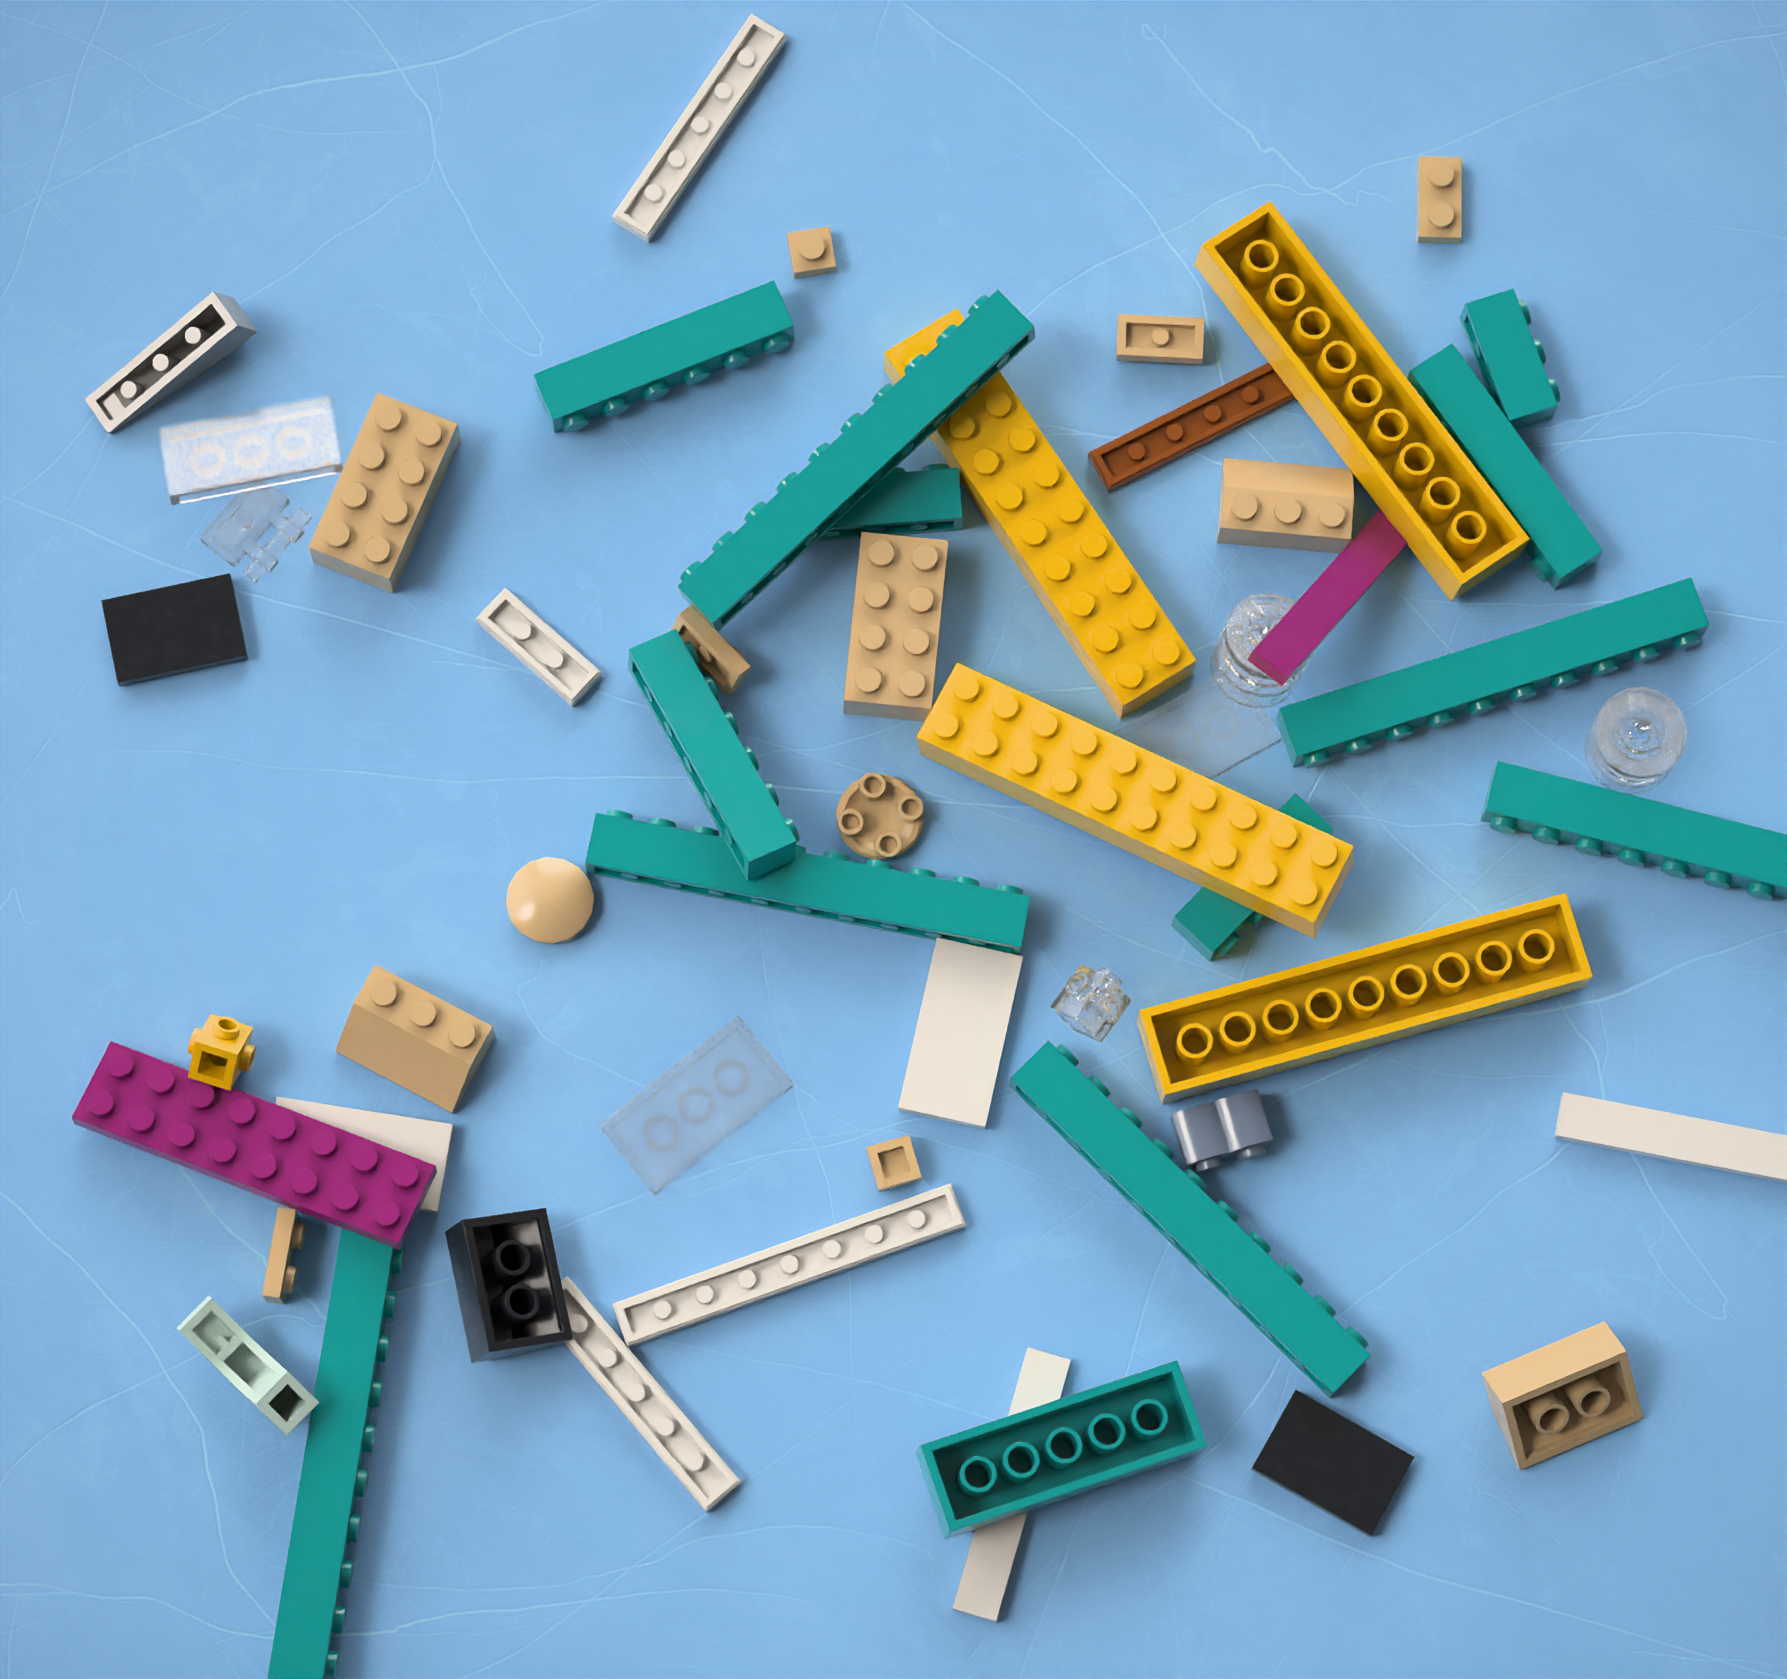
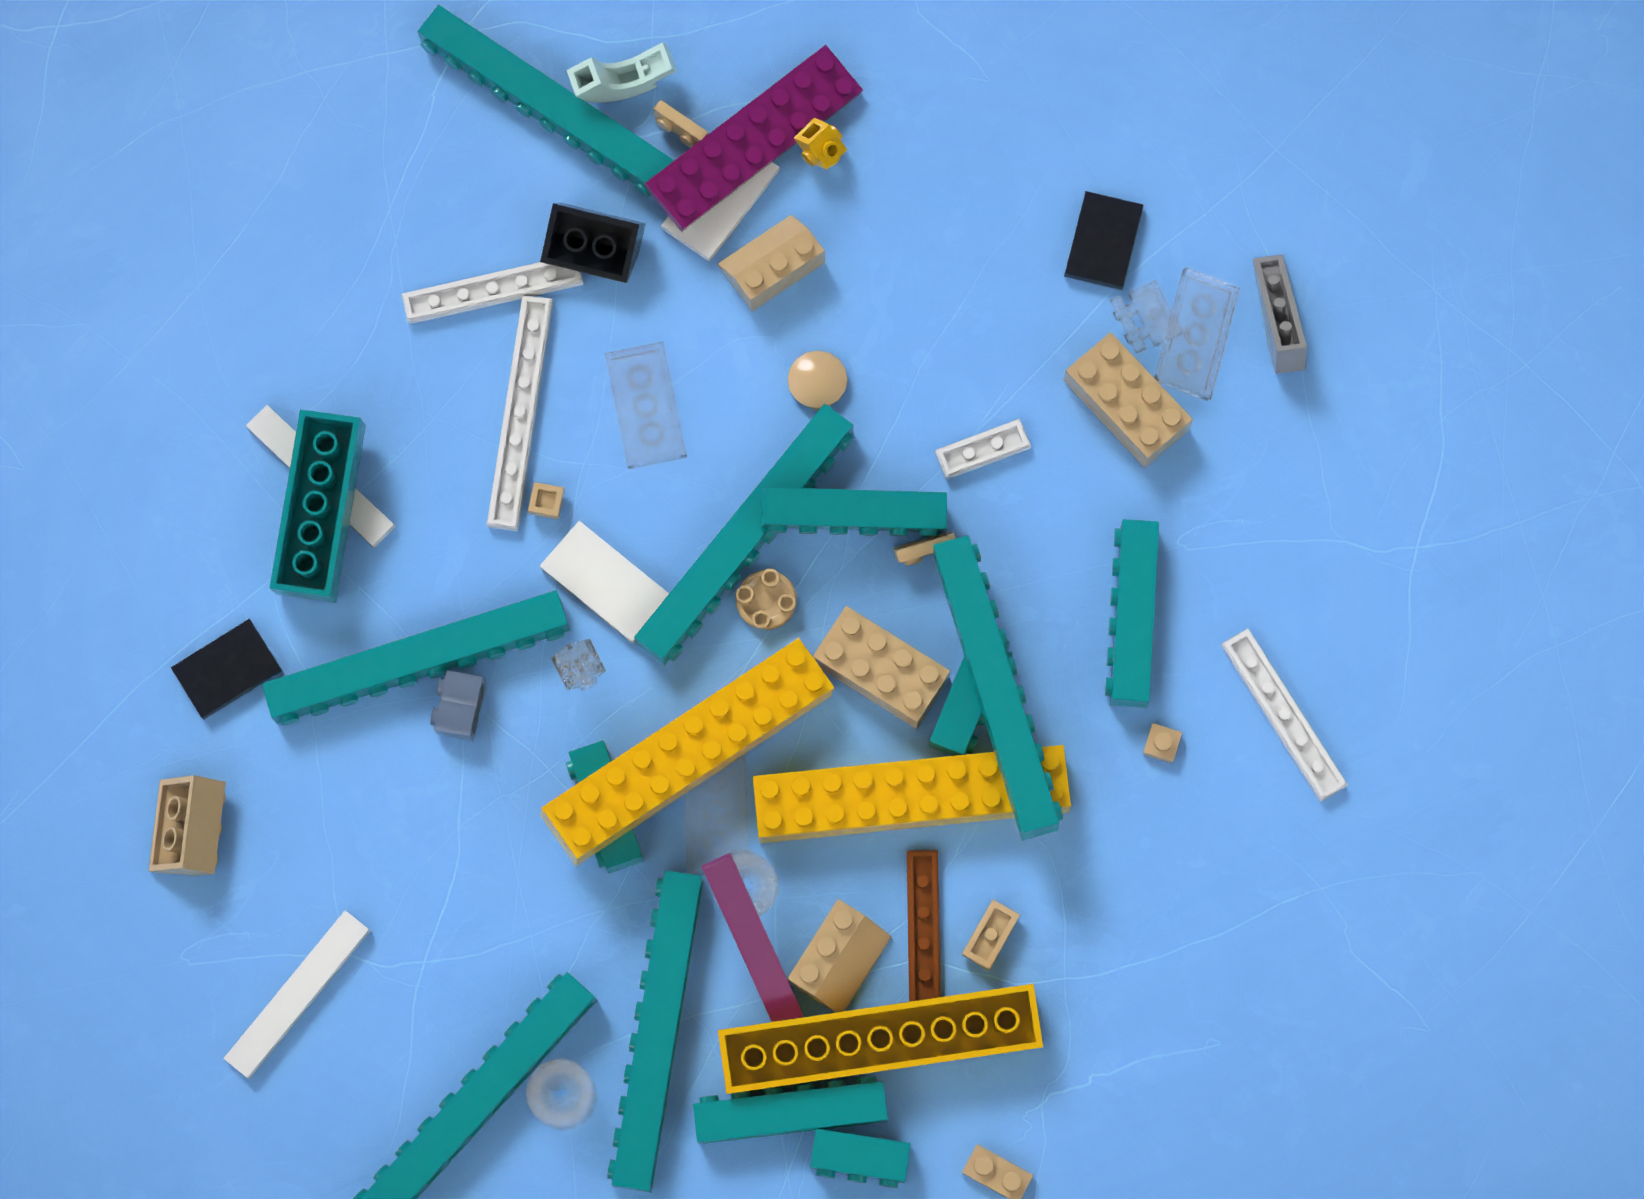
camera: 125 degrees right, 0 degrees up
(1363, 998) = (490, 833): yellow brick -> none

